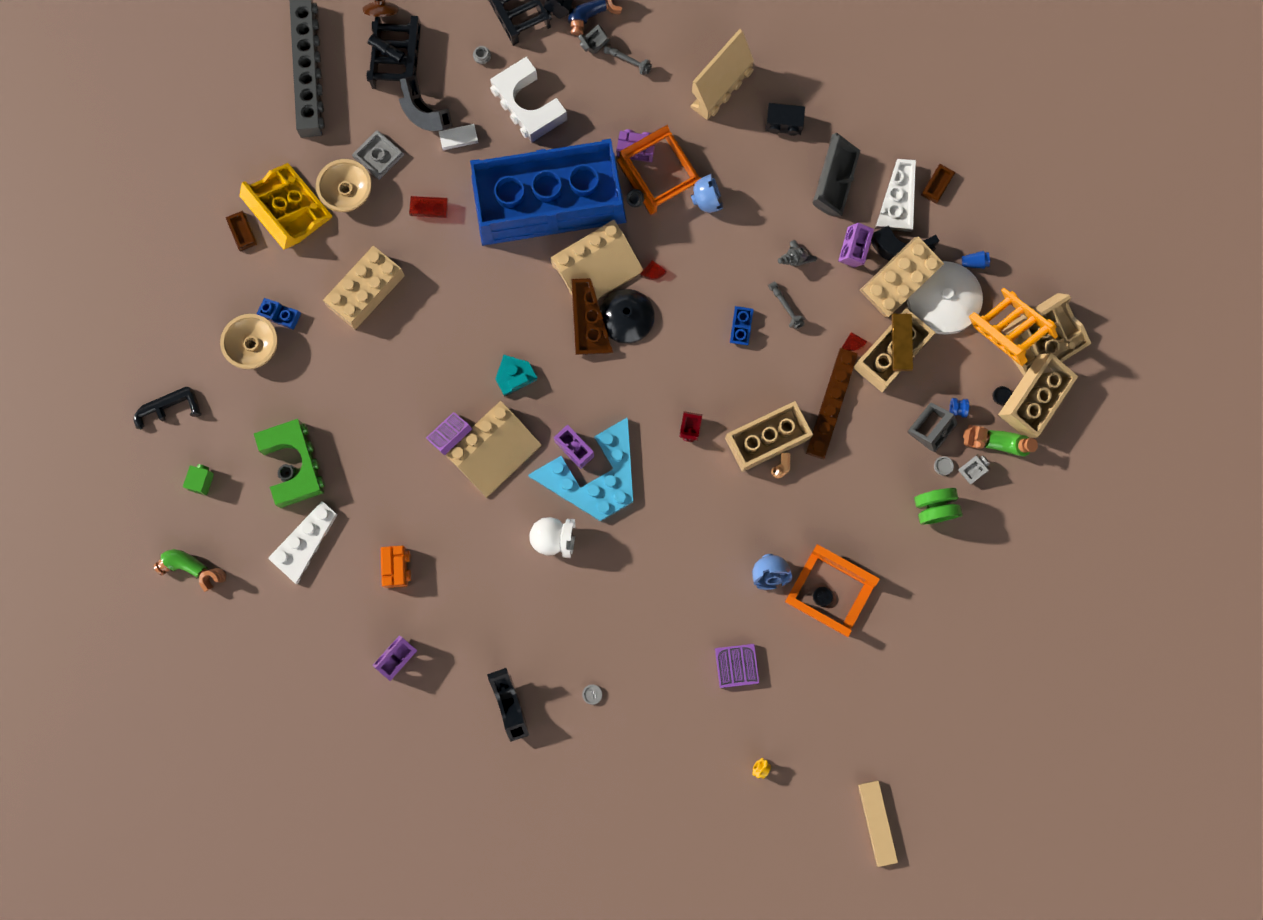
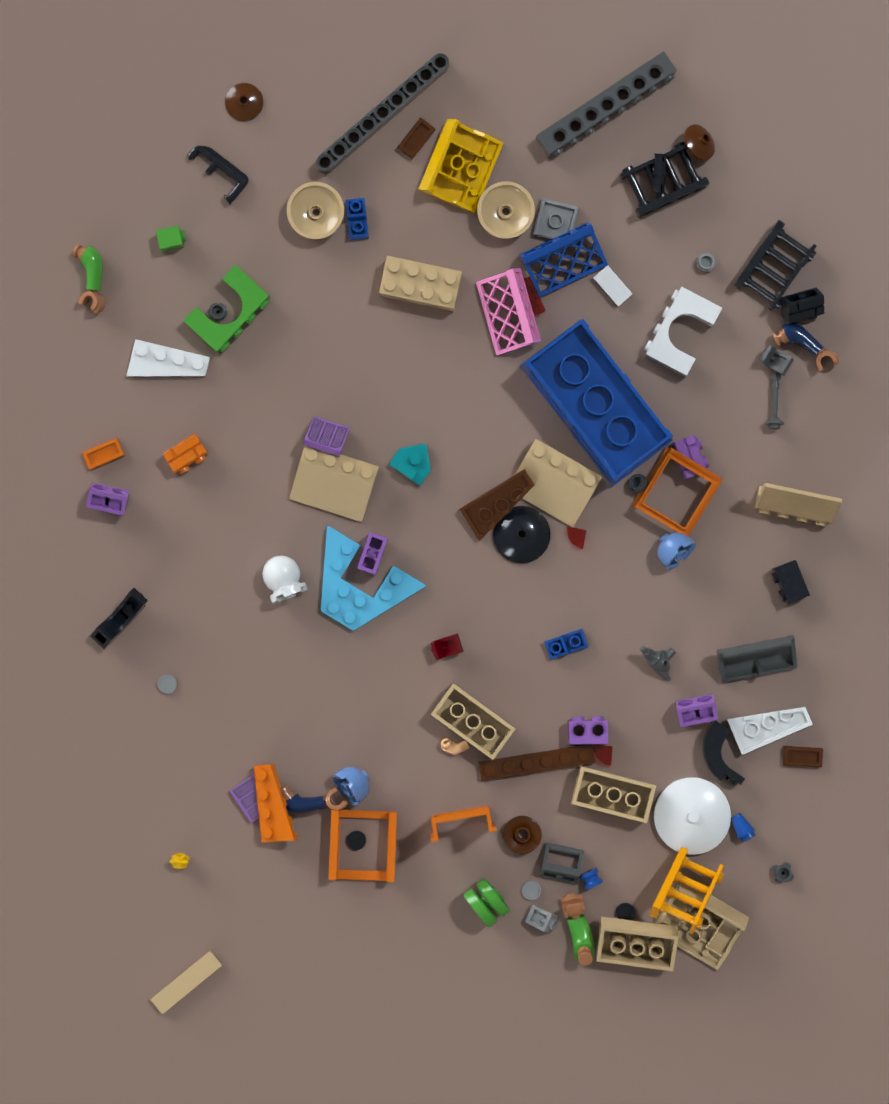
camera: 65 degrees right, 10 degrees up
(128, 362) = (251, 108): none -> reddish brown dish
(207, 252) = (386, 104): none -> dark grey beam
(353, 642) = (103, 454): none -> orange tile
(398, 156) = (561, 243): none -> blue fence
(419, 111) = (615, 238): black arch -> none
(433, 212) = (522, 305): none -> bright pink fence
(760, 656) = (273, 815): none -> orange wing
(765, 630) = (301, 805): none -> dark blue piece
(796, 321) = (596, 691): dark grey piece -> none
(830, 346) = (588, 736): none -> medium lavender brick
(864, 464) = (461, 814): none -> orange piece
(894, 438) = (529, 842): none -> reddish brown dish
(901, 276) = (684, 767): tan brick -> none
(902, 342) = (620, 798): pearl gold tile -> none
(1035, 244) = (788, 874): none -> dark grey plate

